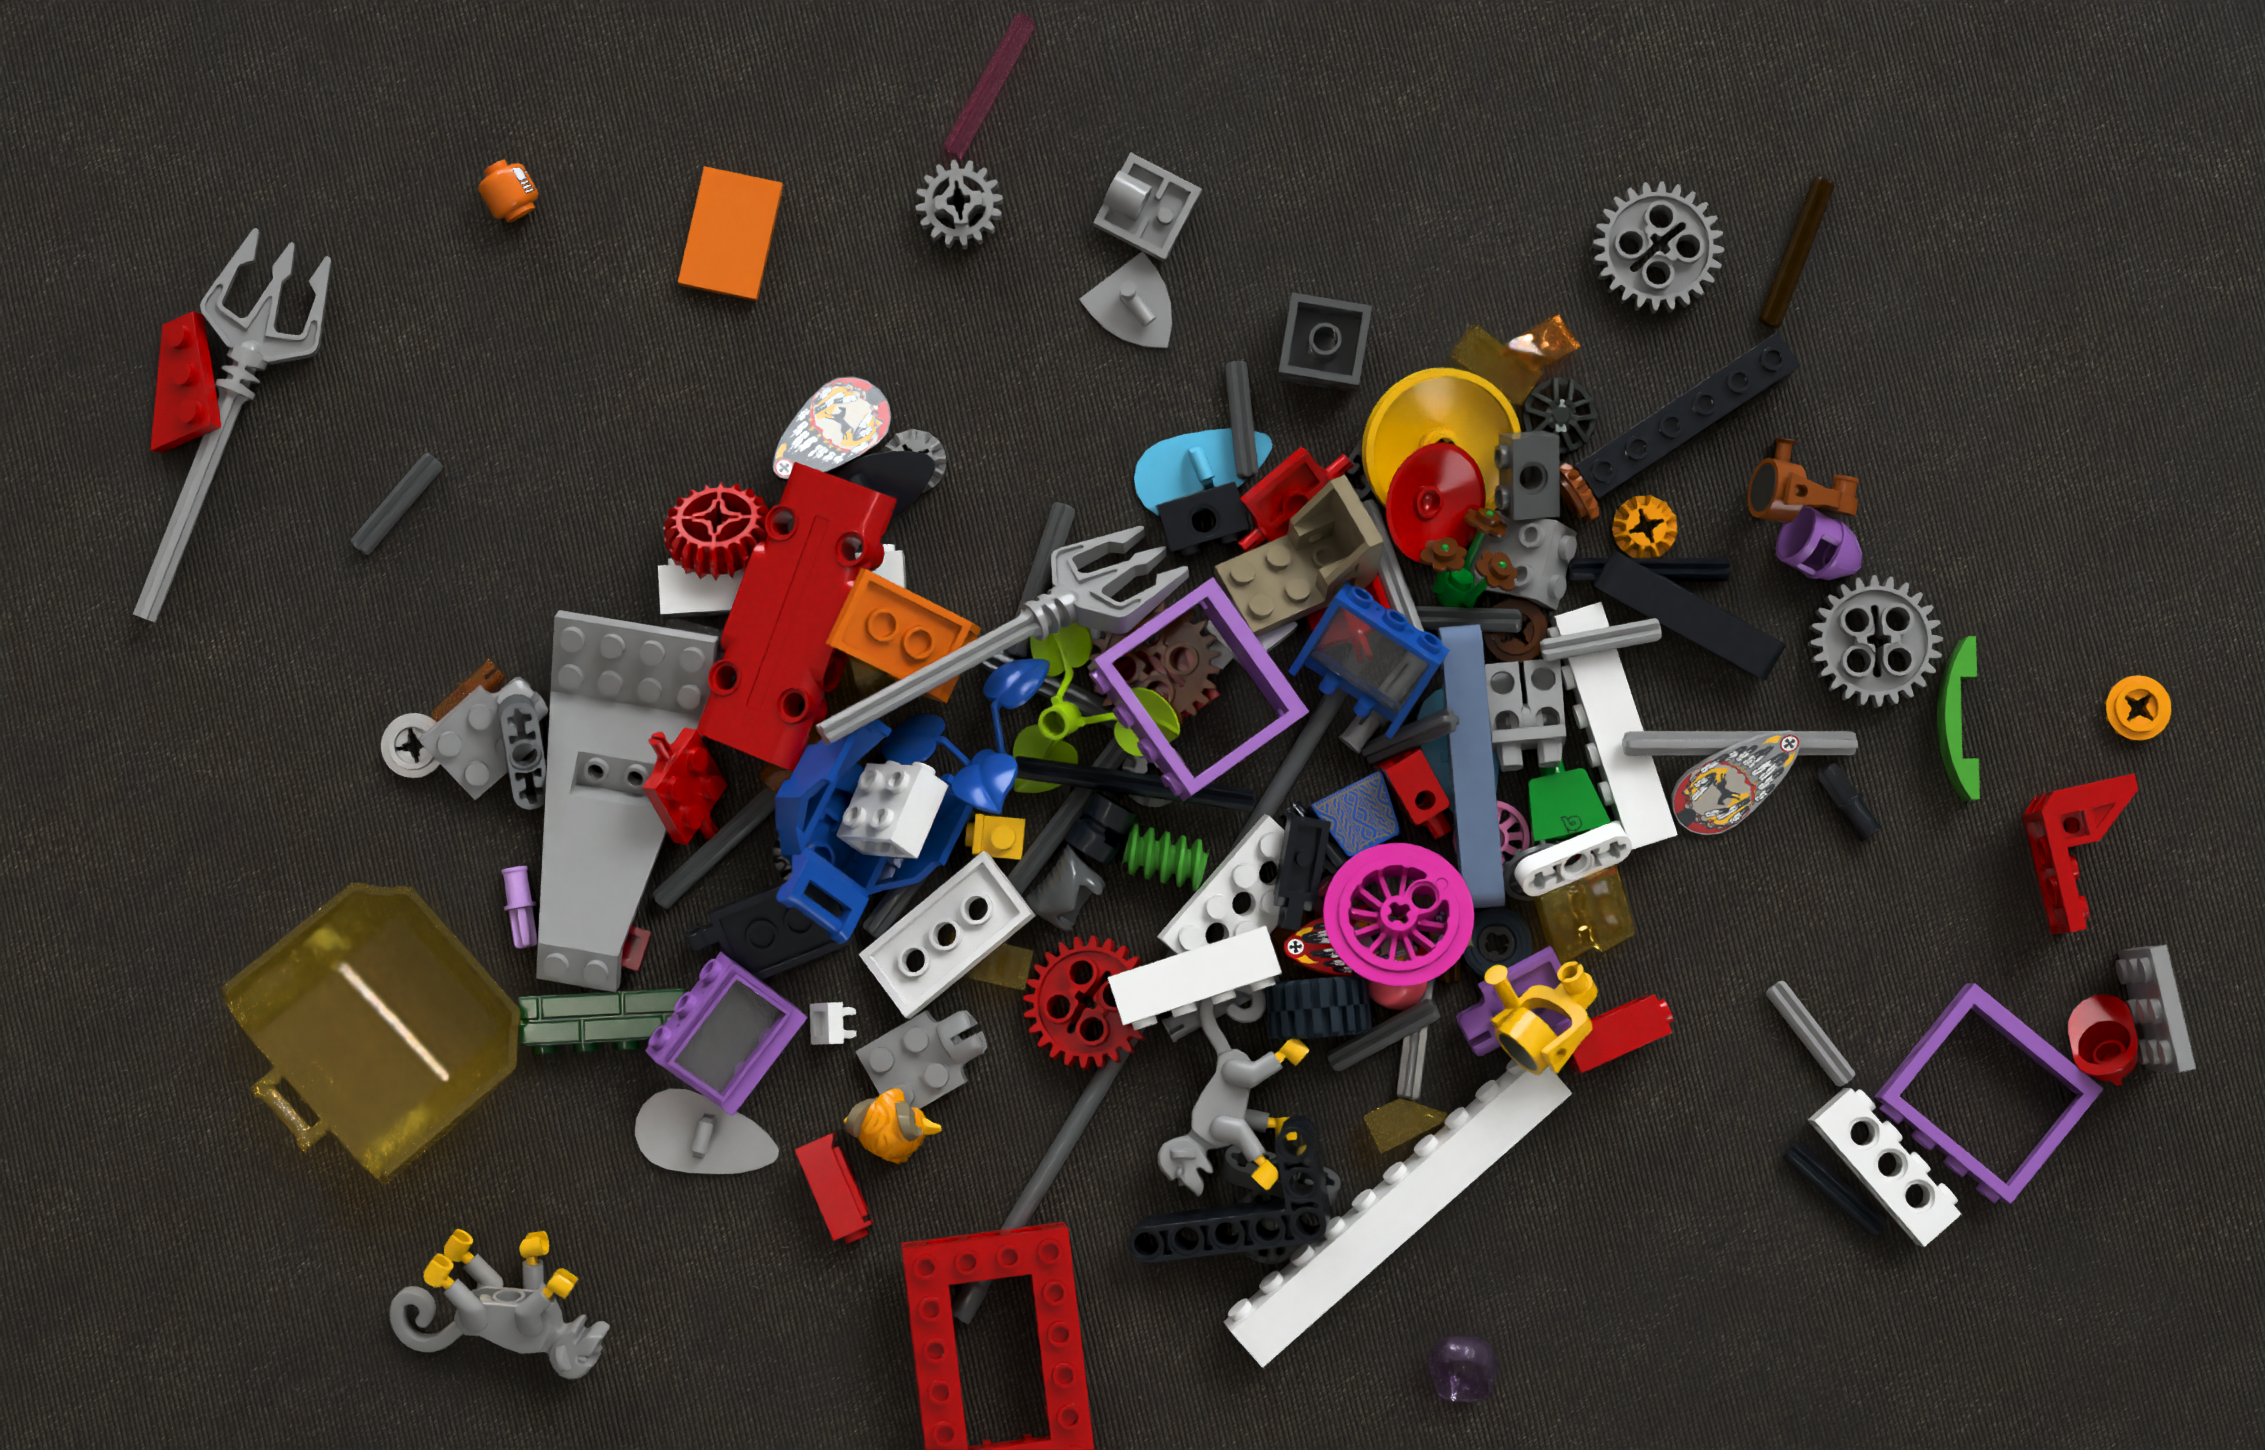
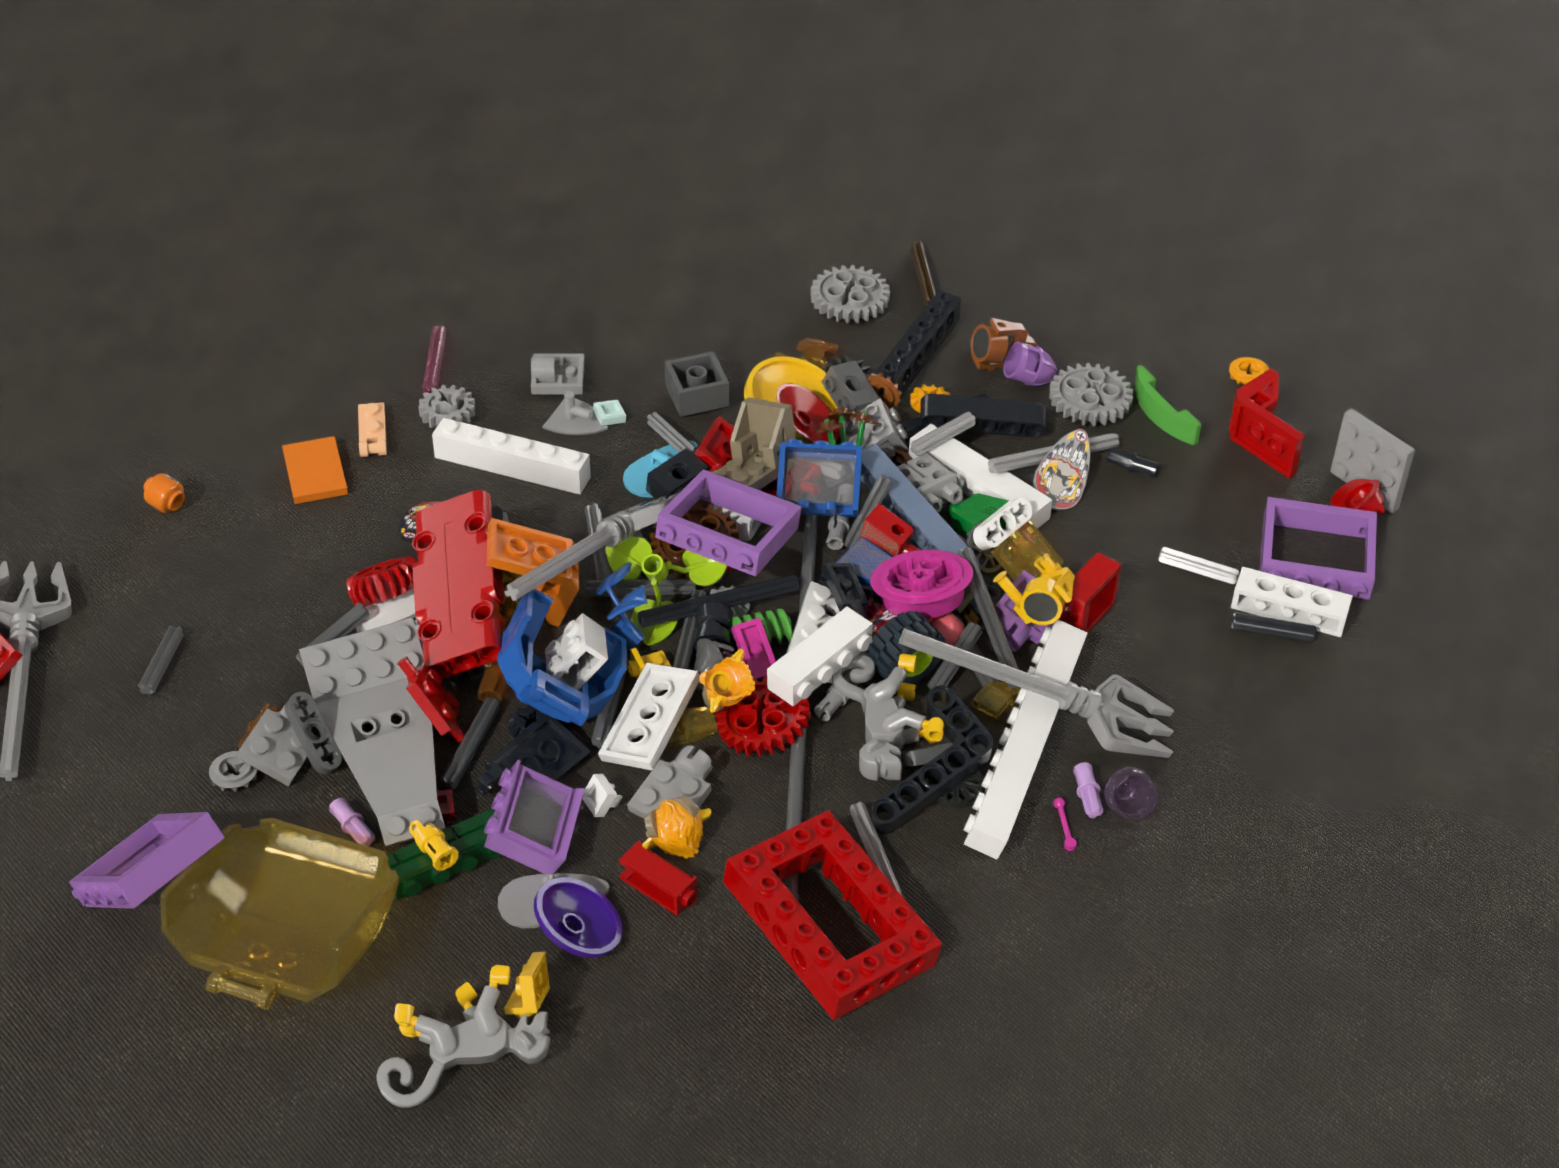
camera: 30 degrees left, 40 degrees down
(257, 930) = (146, 860): none -> medium lavender window
(583, 1023) = (433, 842): none -> yellow piece
(604, 1281) = (530, 988): none -> yellow bracket
(618, 588) = (341, 627): none -> dark grey axle
(729, 1209) = (577, 917): none -> dark purple dish
(841, 190) = (372, 429): none -> light nougat plate
(999, 354) = (511, 455): none -> white brick
(1057, 953) = (727, 682): none -> light orange hair
(1112, 1277) = (872, 842): none -> light grey axle
(1130, 900) = (757, 650): none -> dark pink hinge
(1182, 322) = (609, 412): none -> light aqua tile
(1354, 1382) = (1069, 843): none -> dark pink hinge
(1422, 1324) = (1088, 789): none -> lavender axle
(1456, 1014) = (989, 613): none -> dark grey axle
(1504, 1223) = (1097, 706): none -> light grey piece

